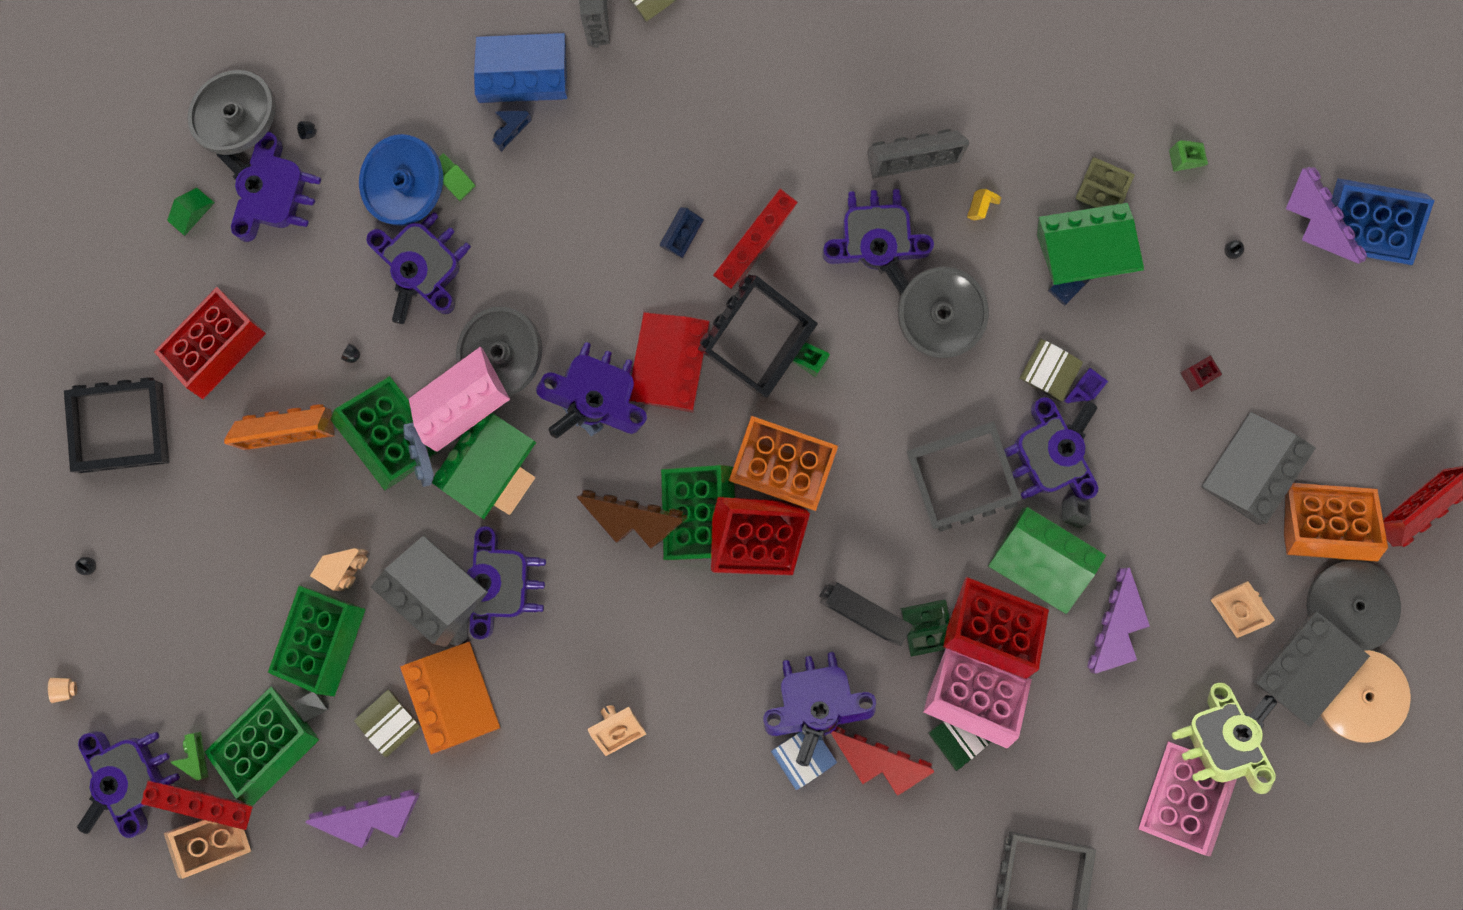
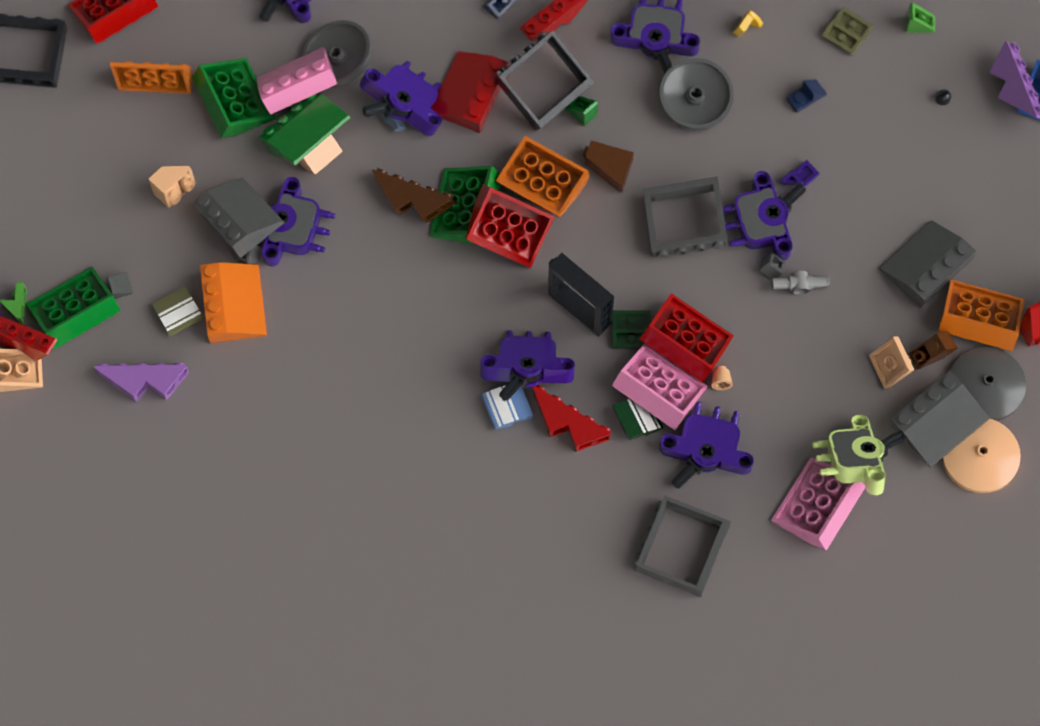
camera: 15 degrees right, 15 degrees down
(316, 641) = (138, 237): green slope -> none
(350, 354) = (219, 35): black hinge -> none
(419, 452) = (256, 111): sand blue hinge -> none
(616, 730) = (360, 350): light nougat tile -> none
(858, 422) = (609, 163): none -> reddish brown slope
(1046, 560) = (739, 295): green slope -> none
(1048, 668) = (721, 378): none -> light nougat hat
(1048, 744) = (705, 436): none -> dark purple piece
(1051, 370) = (774, 156): olive slope -> none
(1090, 243) = (824, 64): green slope -> none
(1114, 527) = (800, 282): none -> light grey pin
(1124, 616) = (793, 353): medium lavender slope -> none
(1201, 373) = (895, 181): dark red slope -> none
(1286, 579) = (933, 350): none -> reddish brown slope

